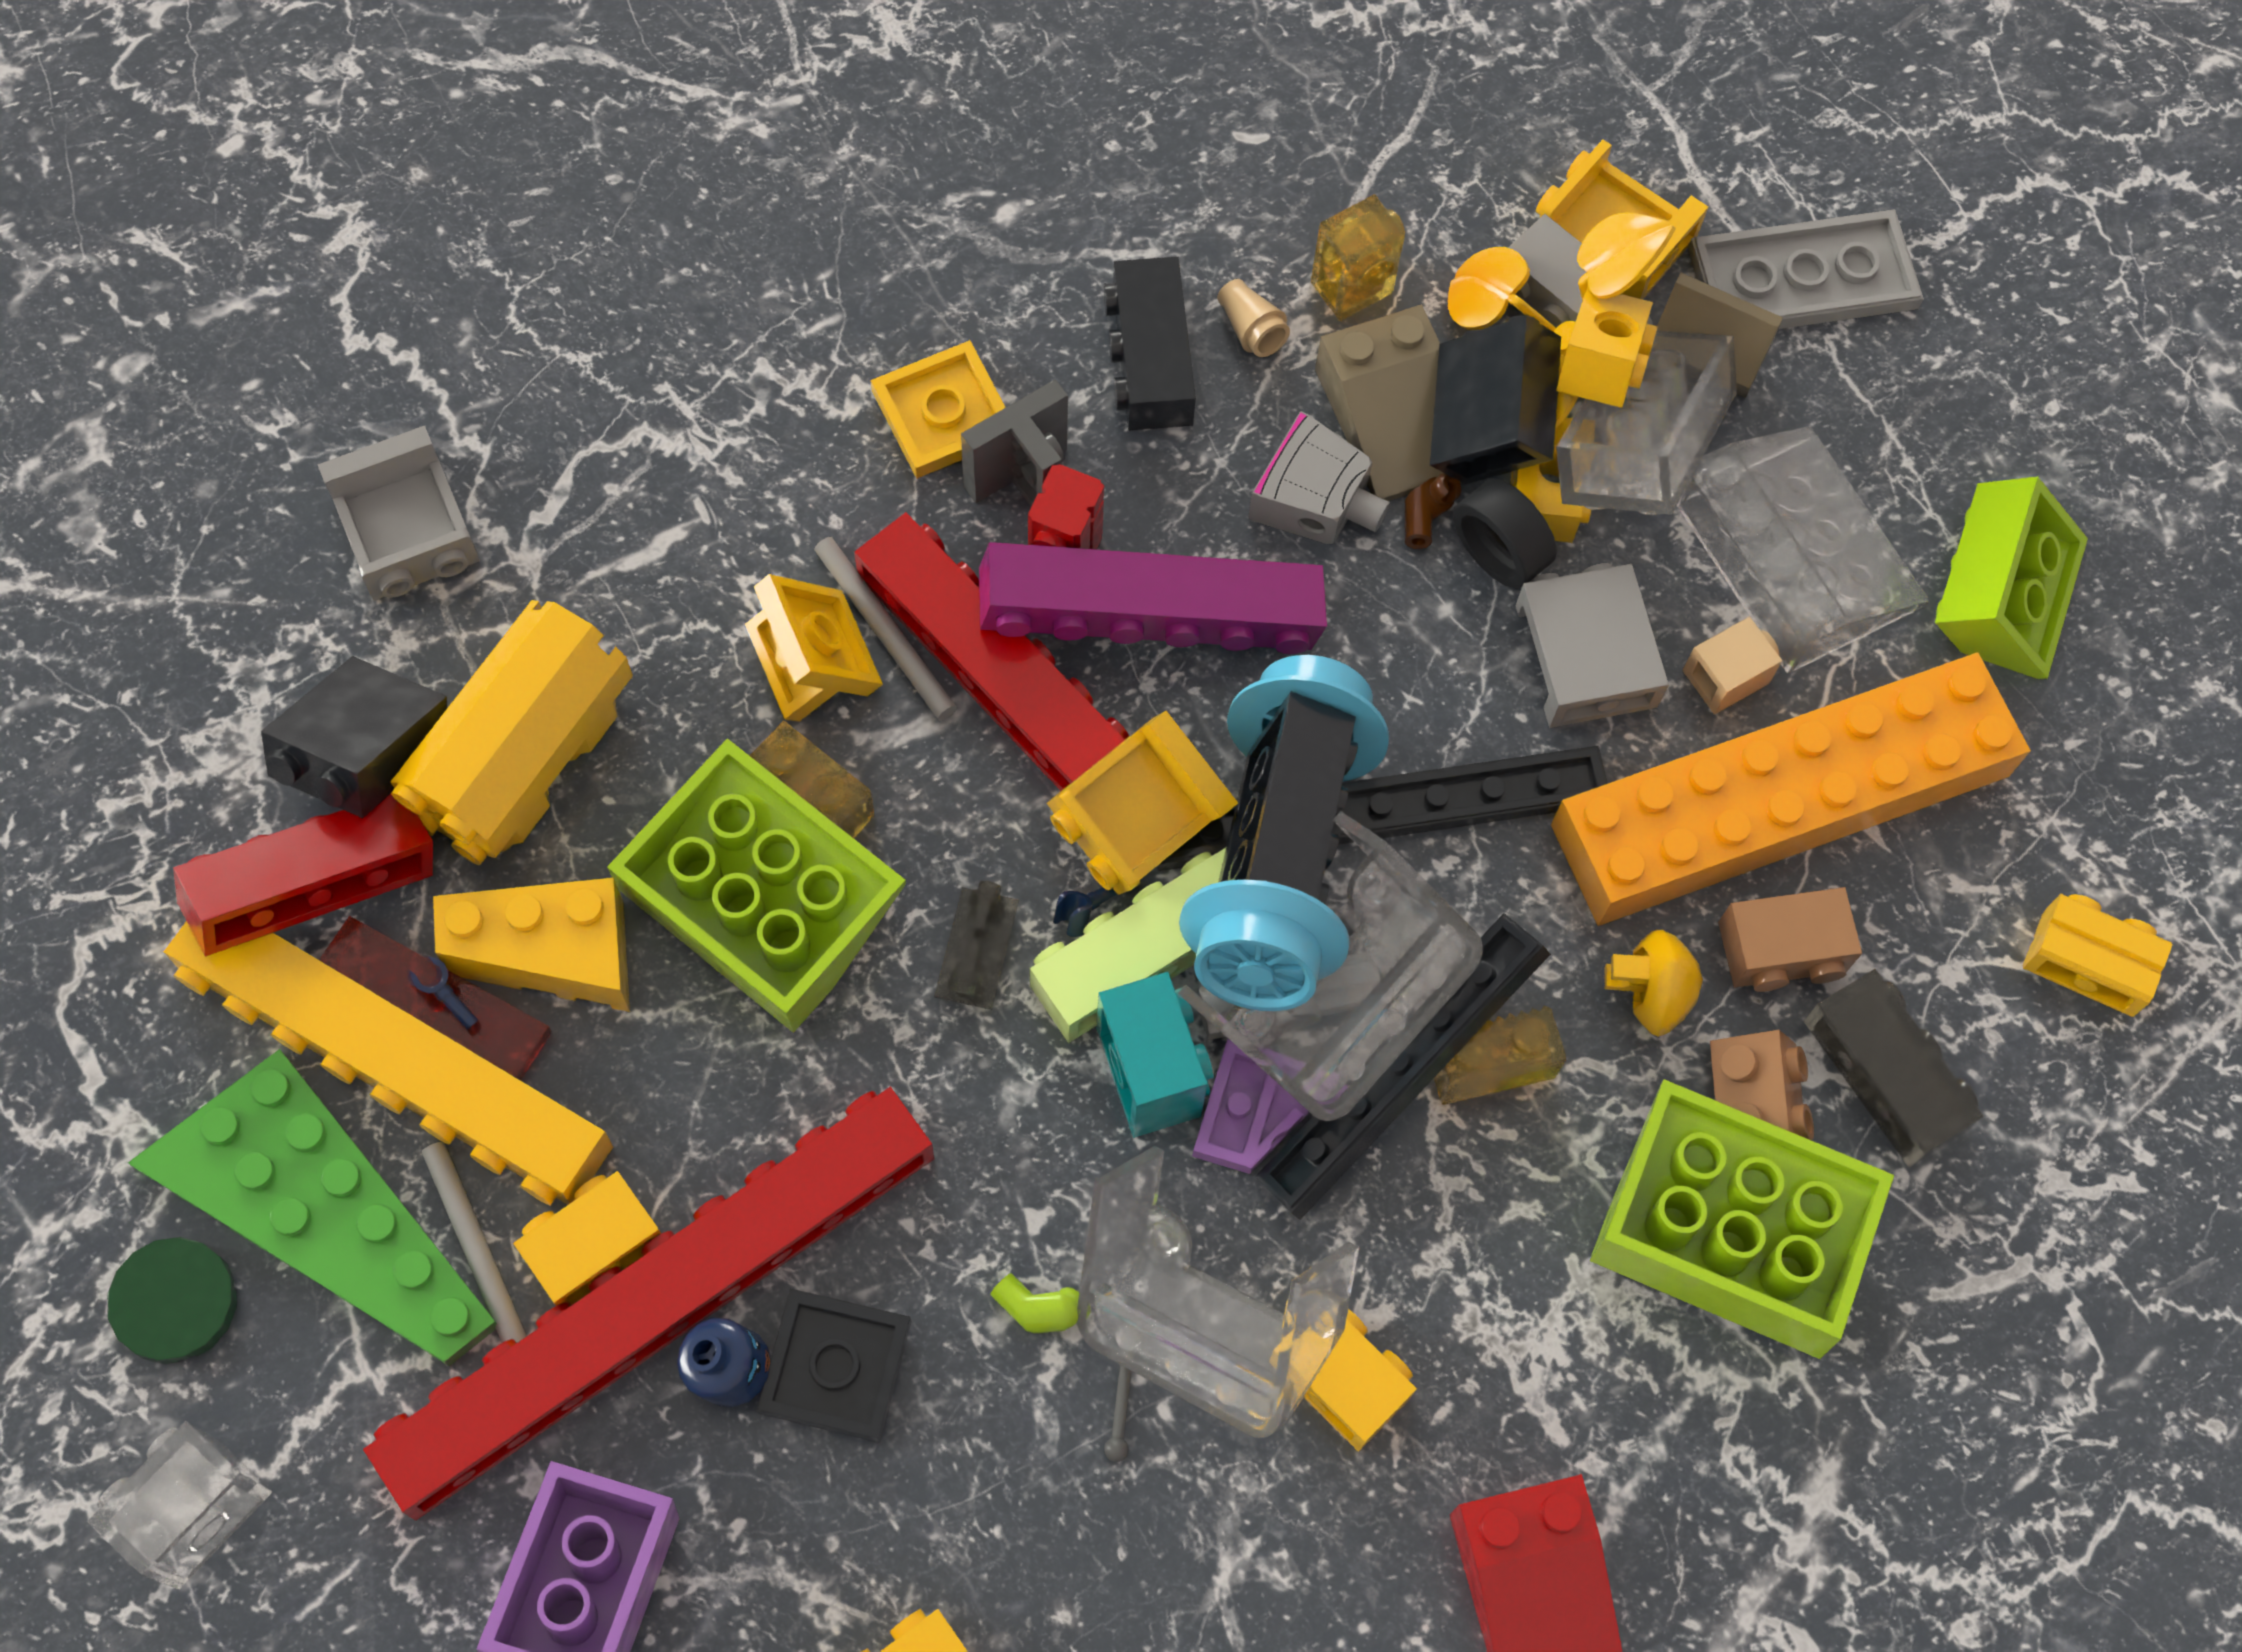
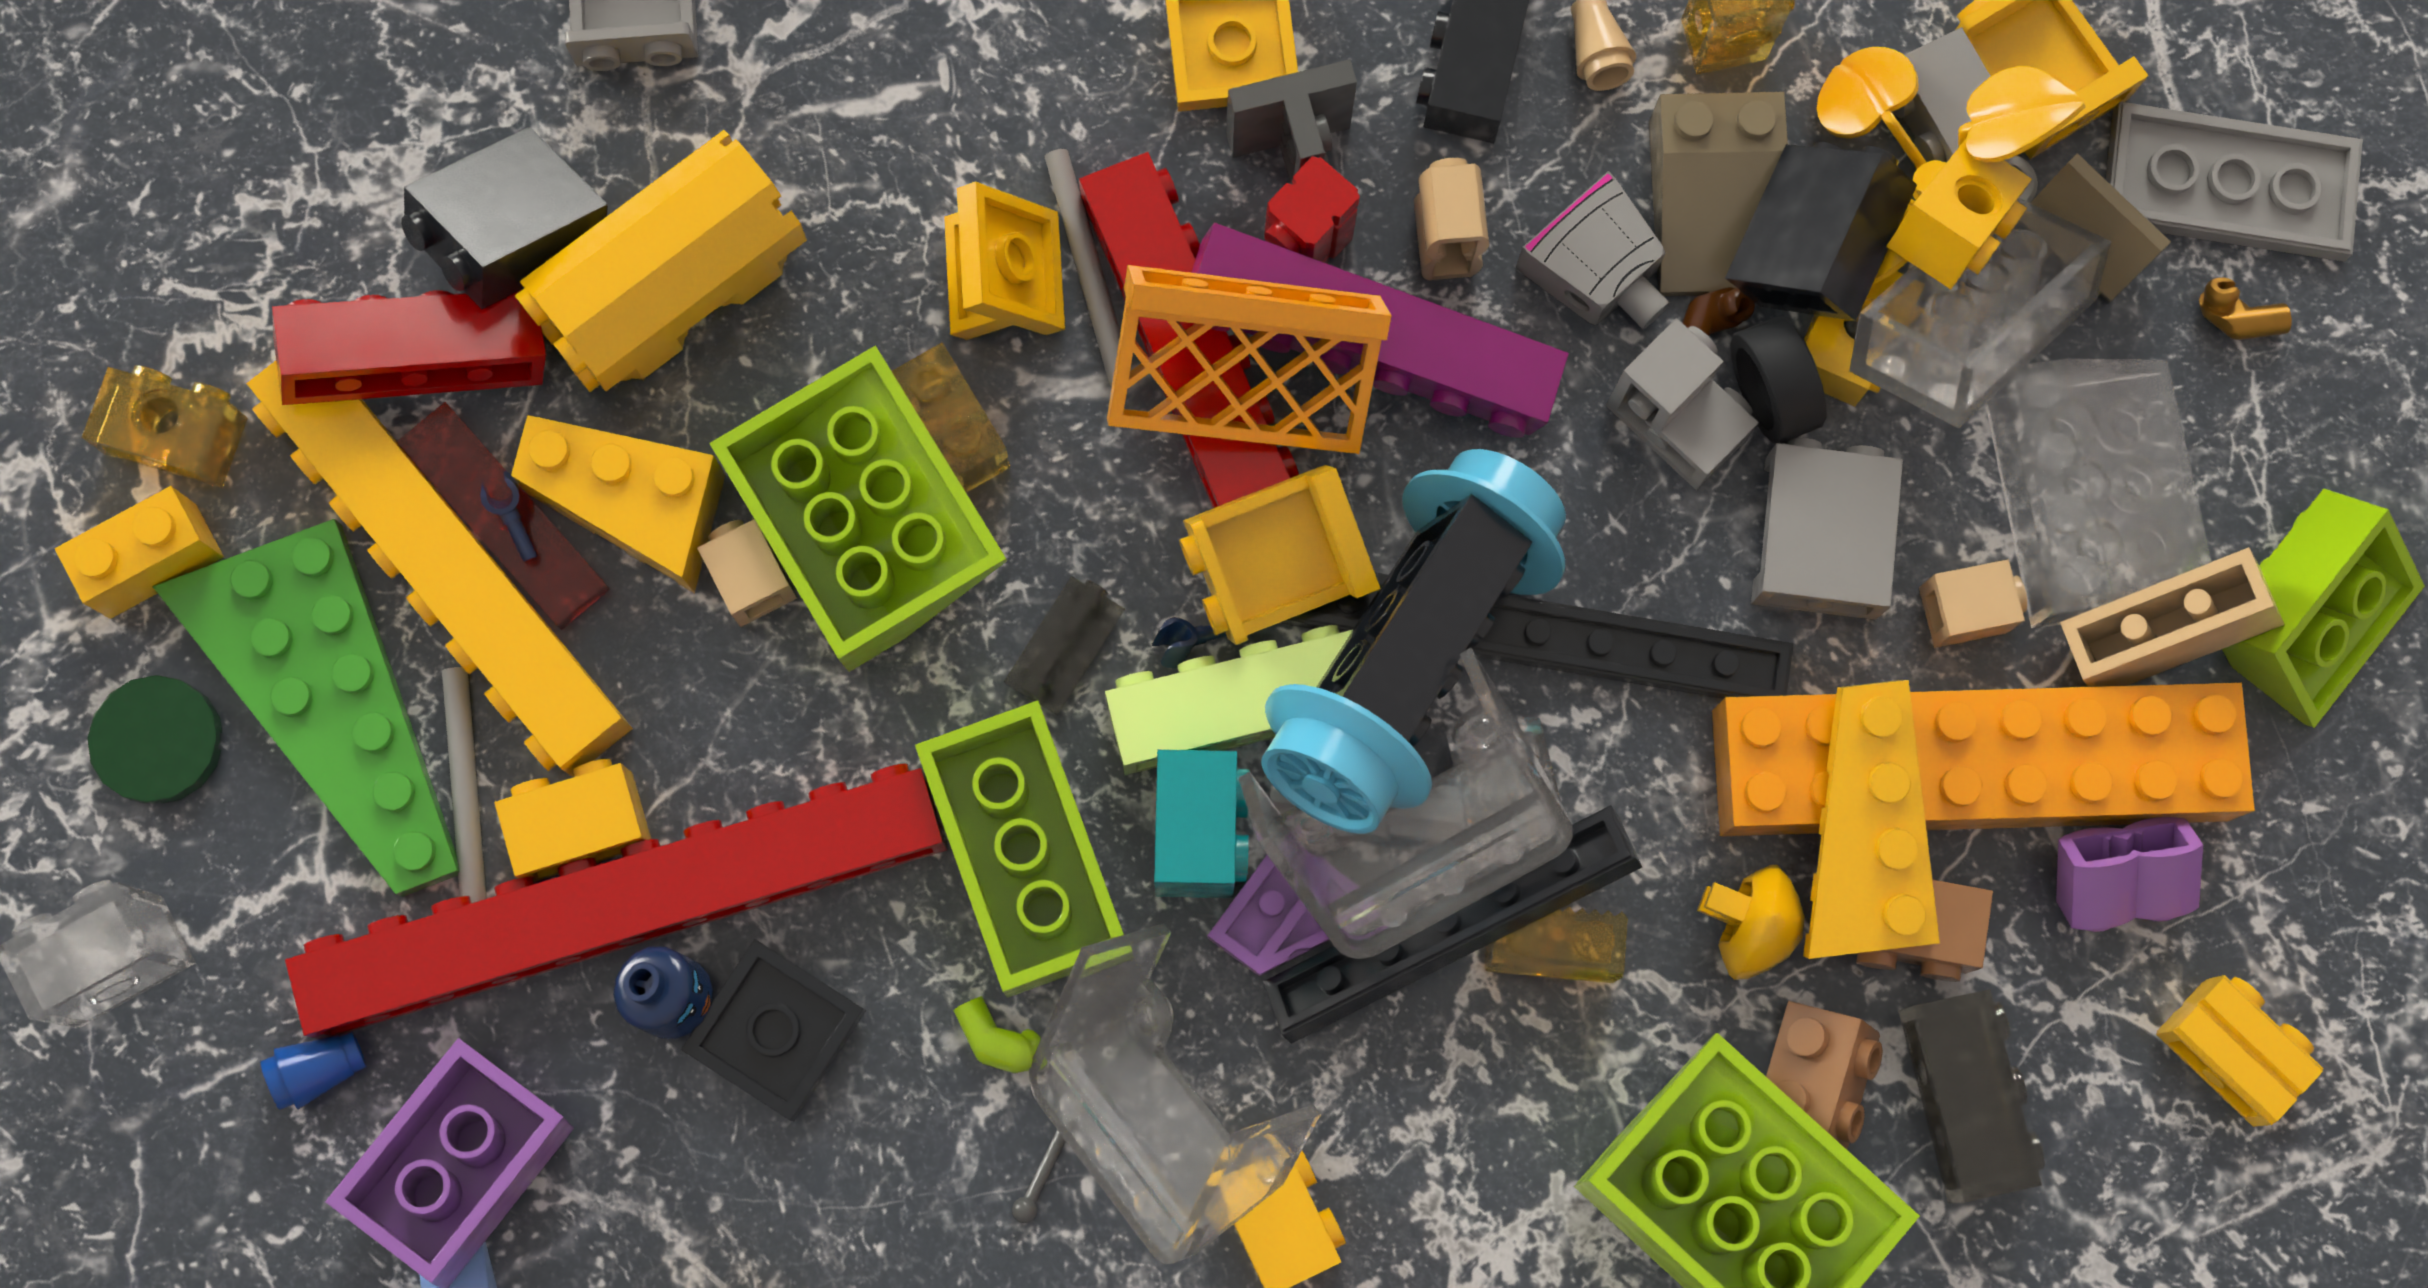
camera: 20 degrees right, 10 degrees up
(104, 1133) = (137, 549): none -> yellow brick
(129, 1030) = (128, 418): none -> clear yellow brick
(416, 1546) = (311, 1068): none -> blue cone
(673, 973) = (746, 571): none -> tan brick
(1001, 1126) = (1019, 846): none -> lime brick
(1047, 598) = (1257, 307): none -> light orange fence
(1184, 489) = (1451, 220): none -> tan brick
(1428, 582) = (1677, 405): none -> light grey brick
(1734, 878) = (1874, 848): none -> yellow wing
(1855, 378) = (2235, 318): none -> pearl gold arm
(1904, 619) = (2173, 622): none -> tan brick
(1949, 838) = (2129, 873): none -> medium lavender brick

